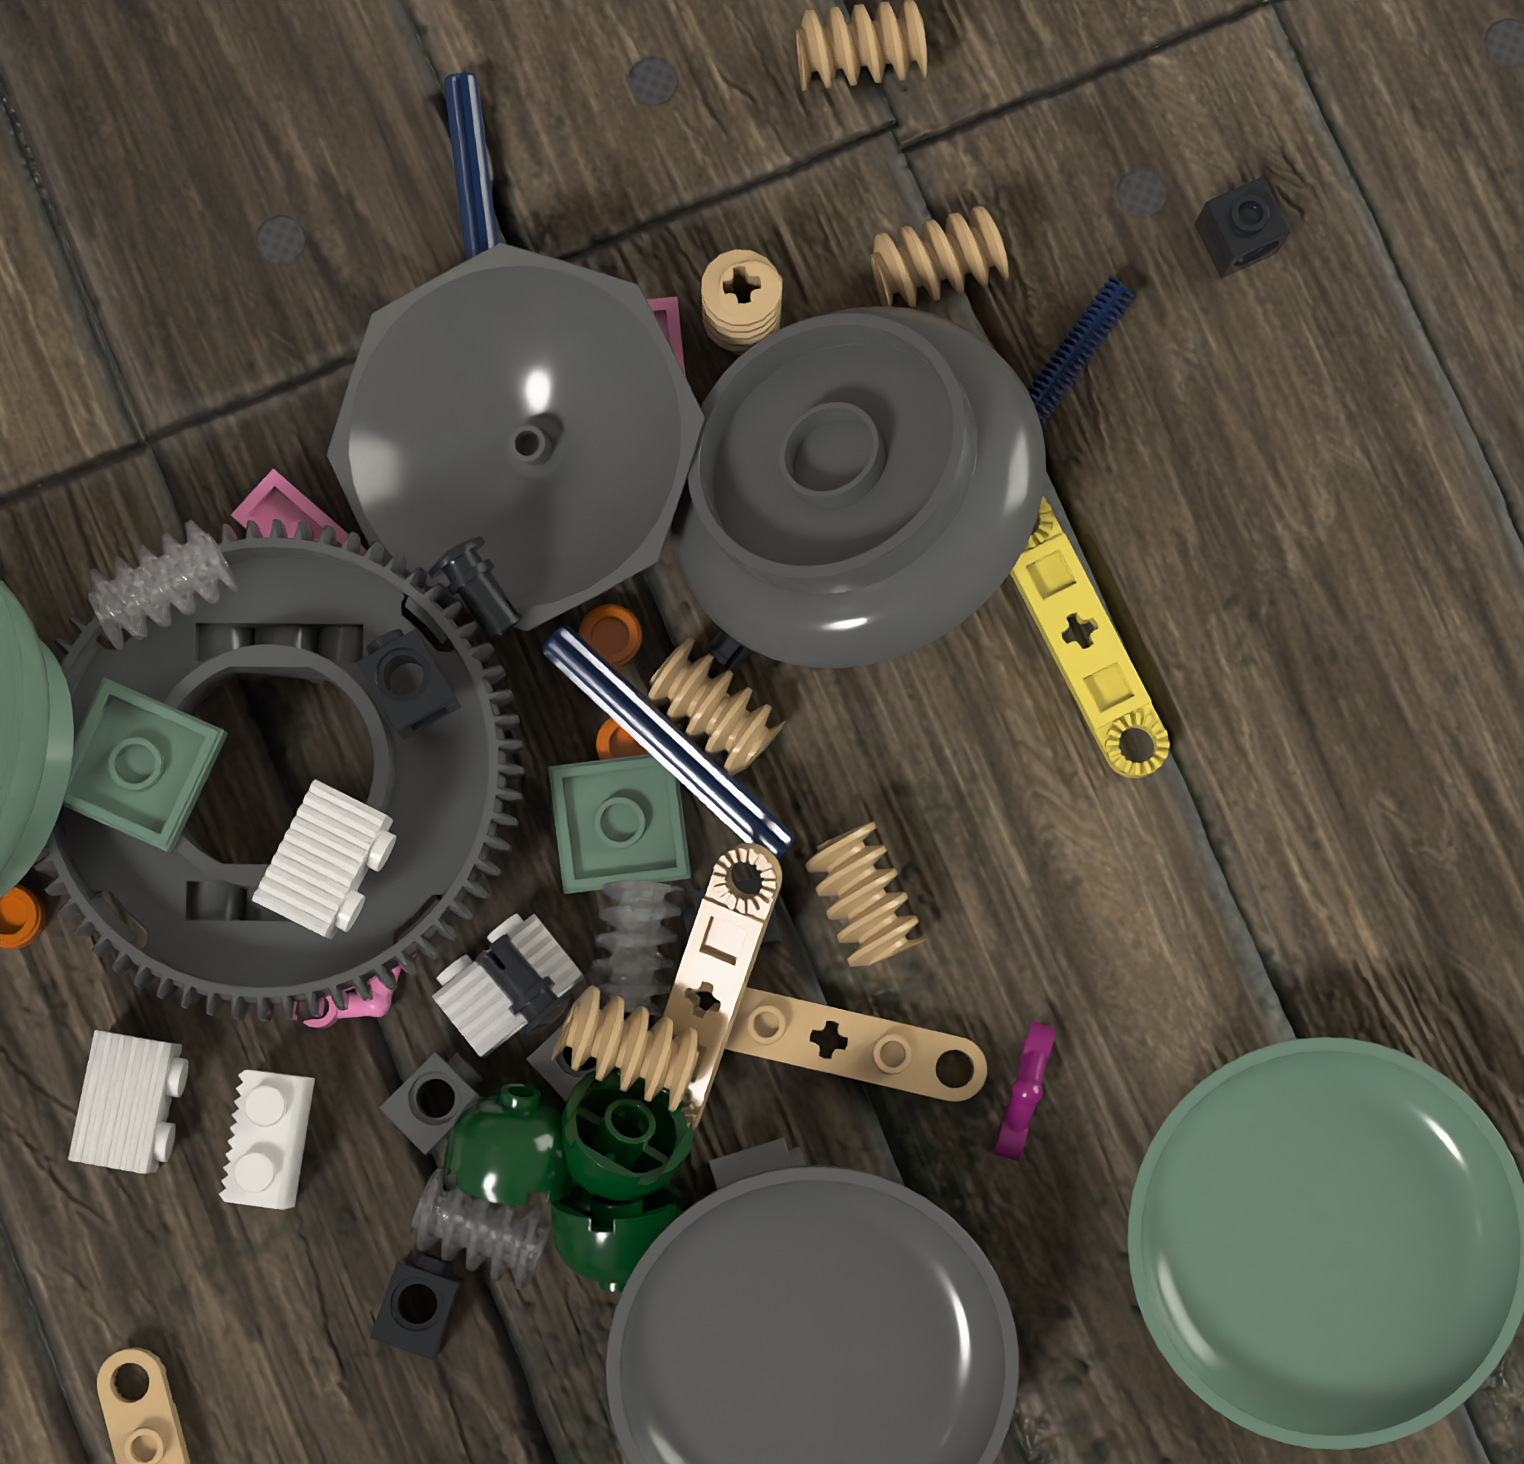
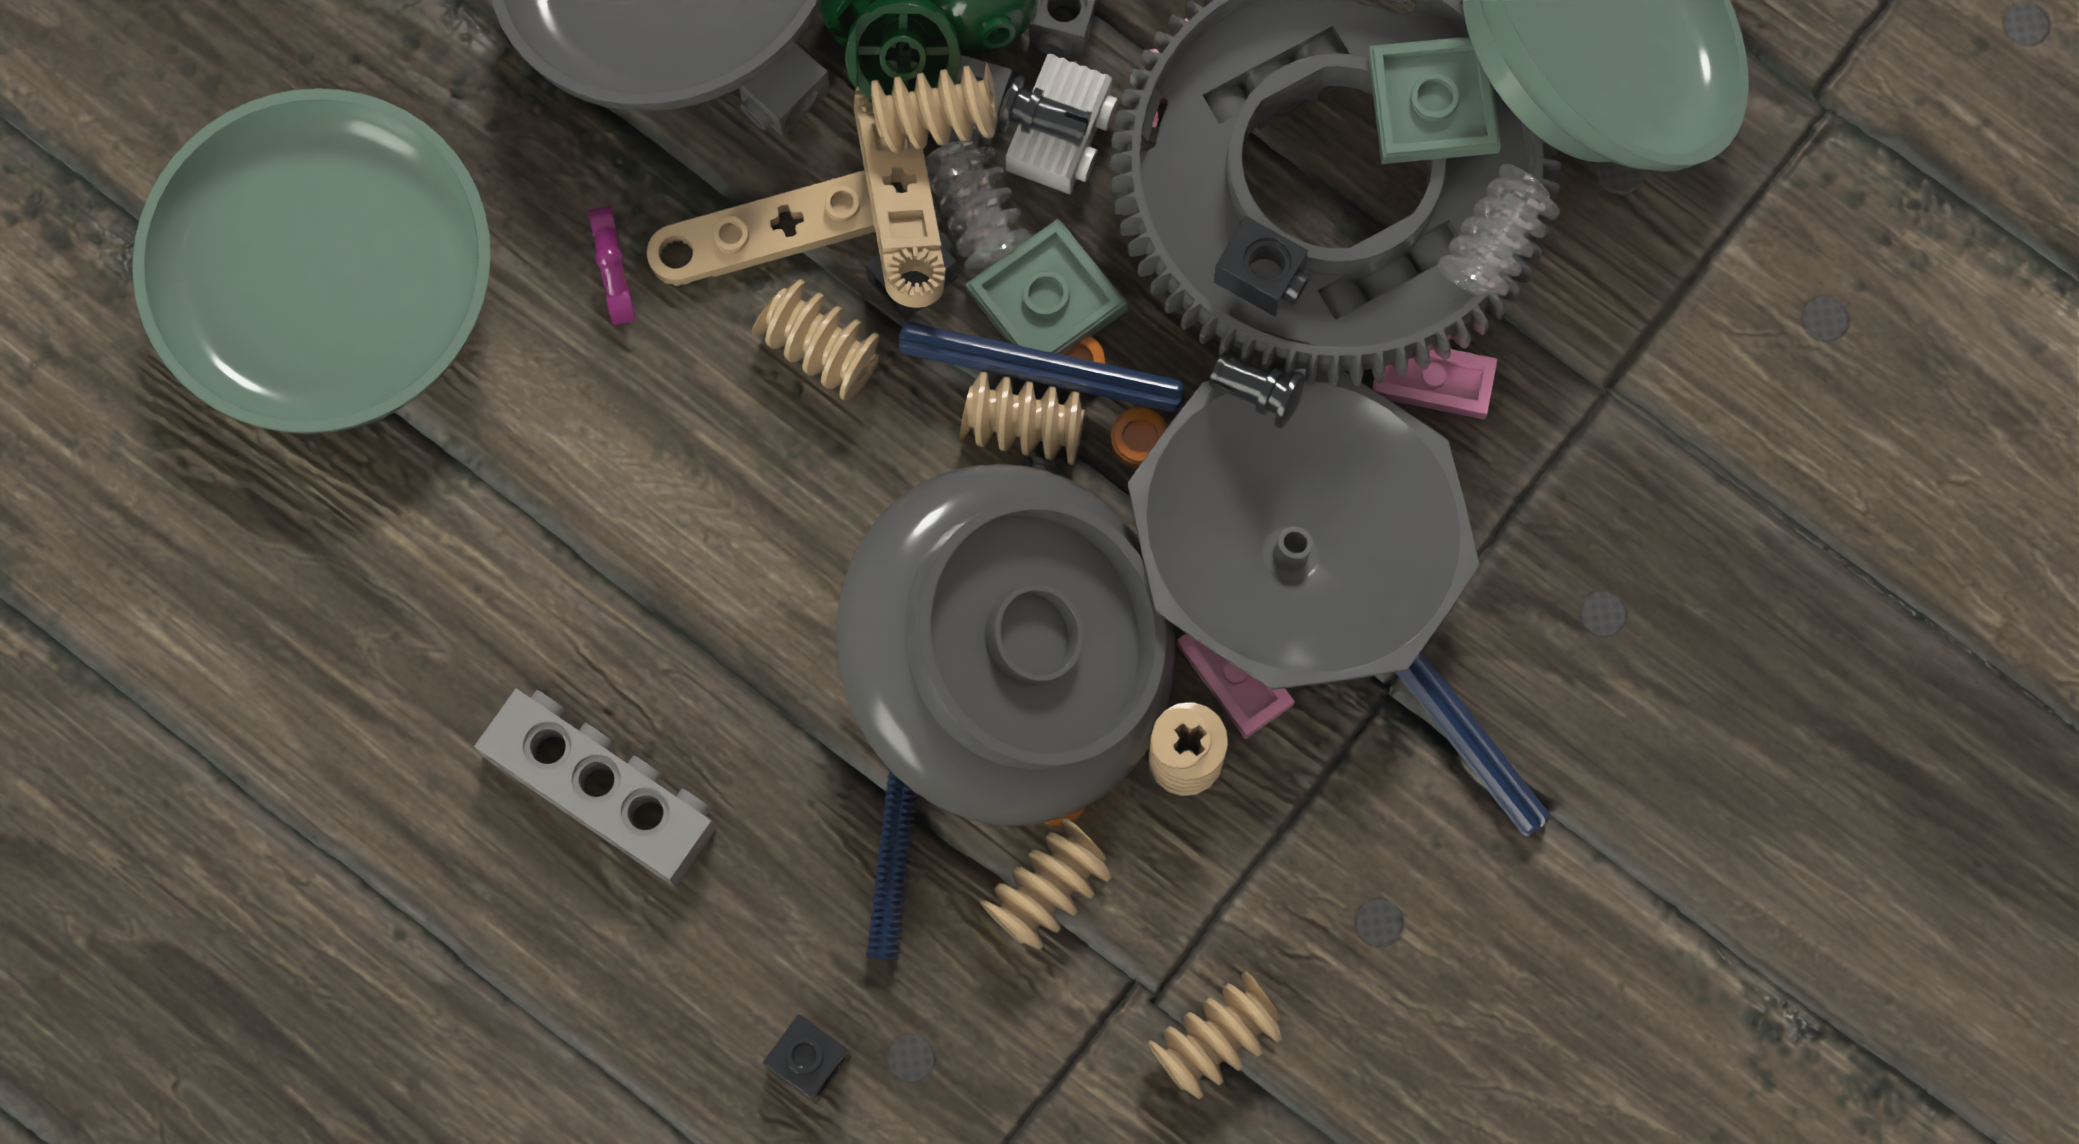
camera: 155 degrees right, 5 degrees down
(325, 861) = (1244, 102): white brick -> none
(1097, 676) = (727, 620): light yellow piece -> none
(1279, 491) = (512, 746): none -> light grey brick

